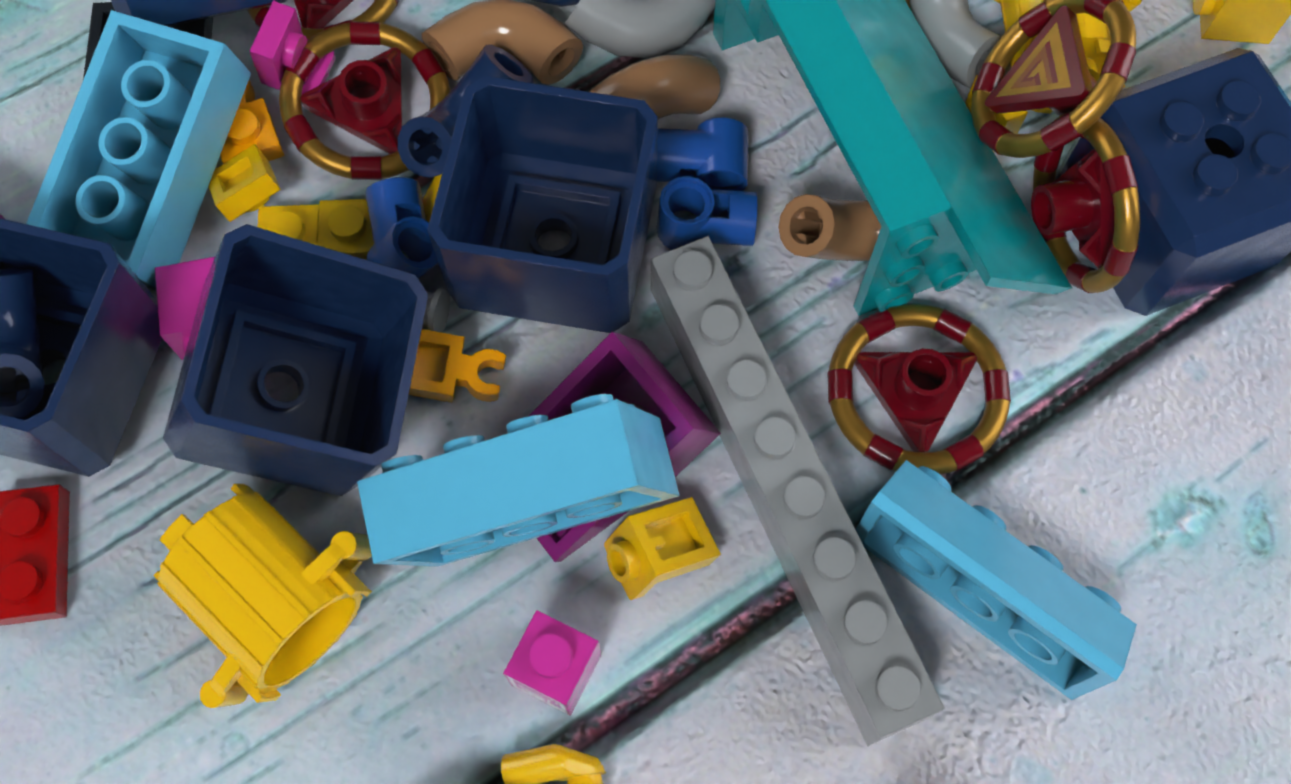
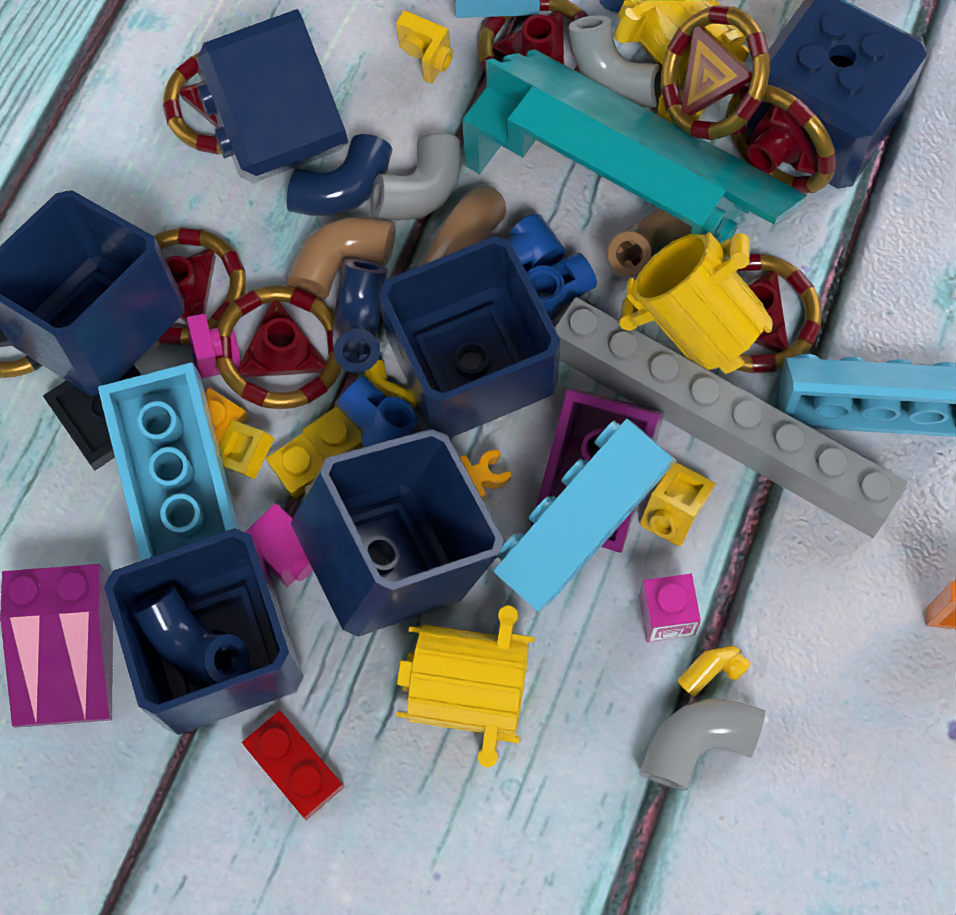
camera: 30 degrees left, 0 degrees up
(839, 325) = (699, 300): none -> yellow container

